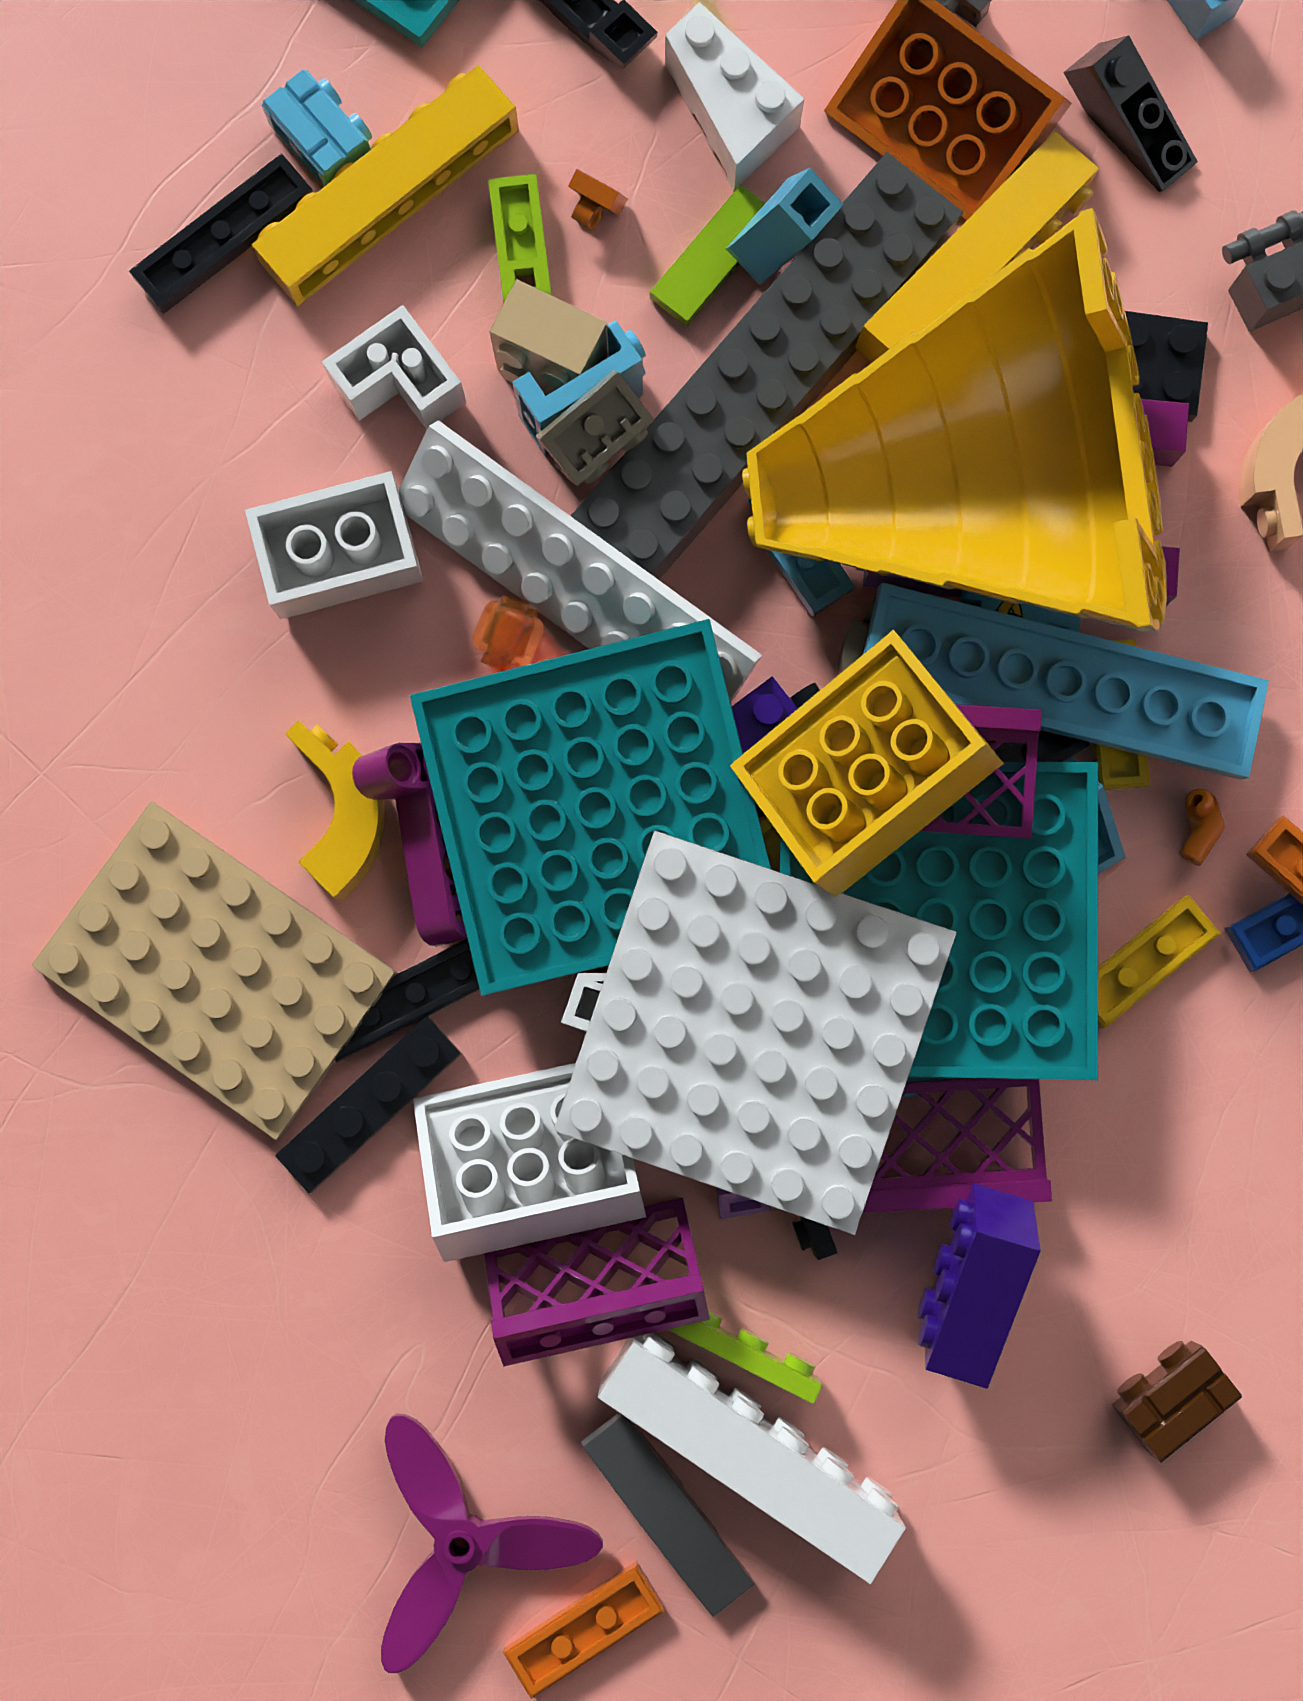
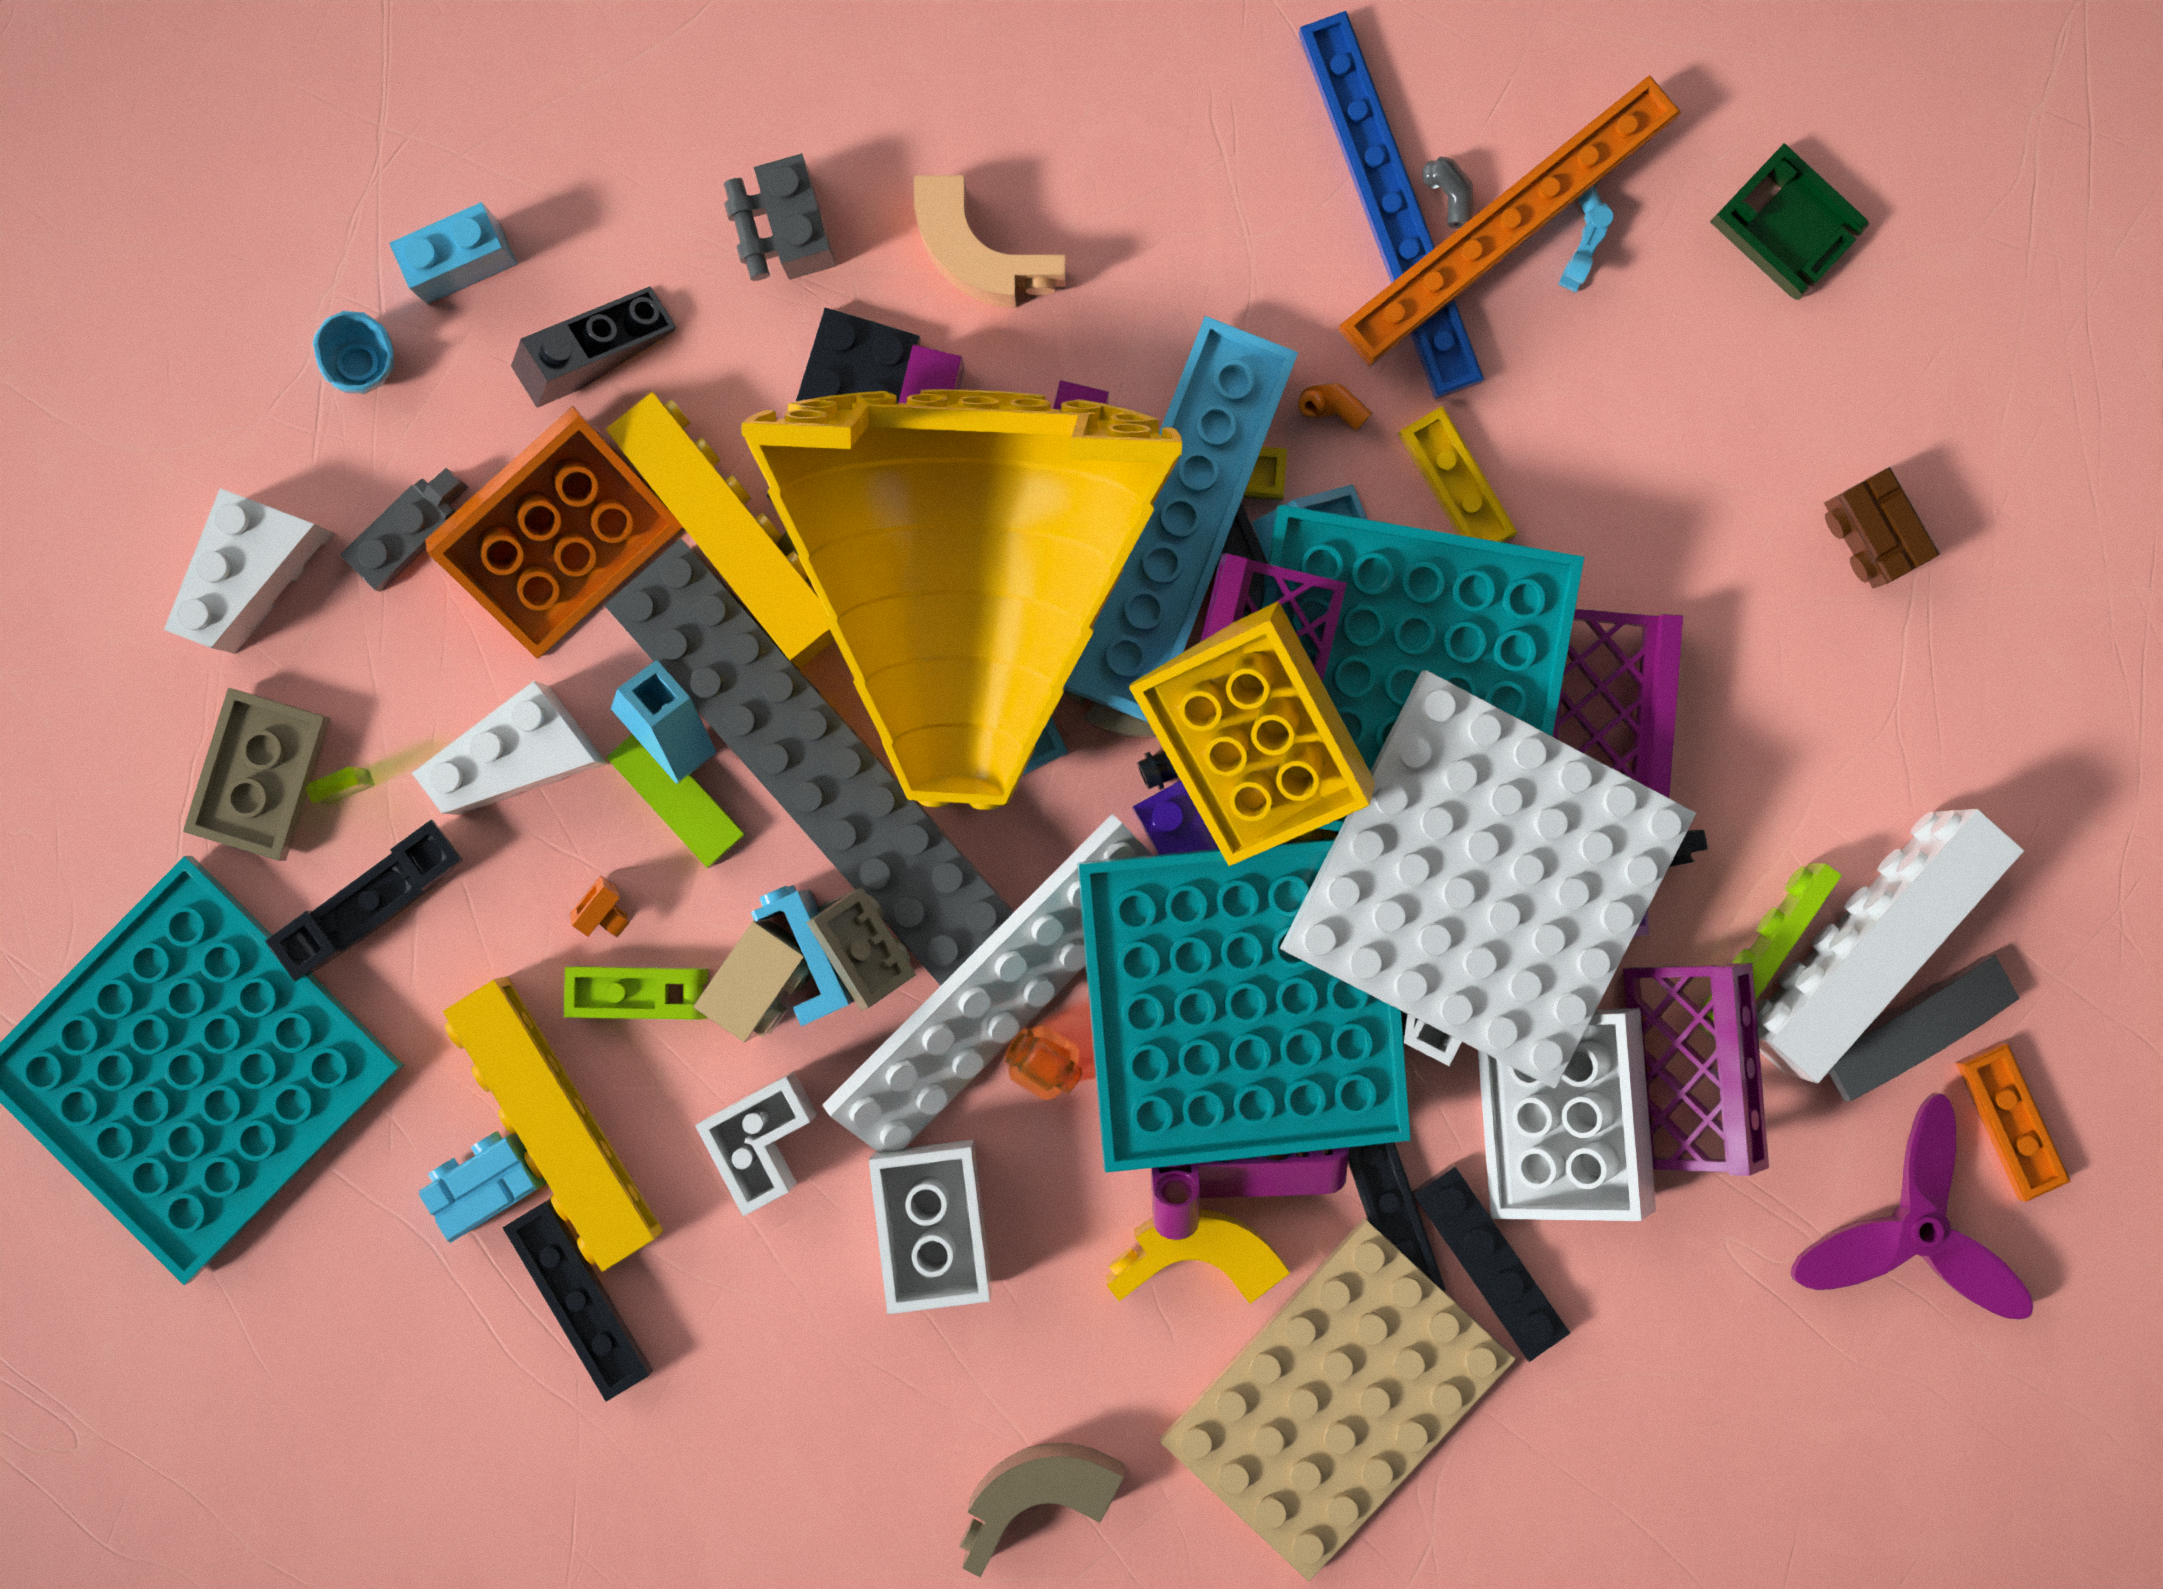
camera: 80 degrees left, 5 degrees up
(109, 702) = (1035, 1476): none -> dark tan arch
(978, 1284) = (1757, 701): dark purple brick -> none

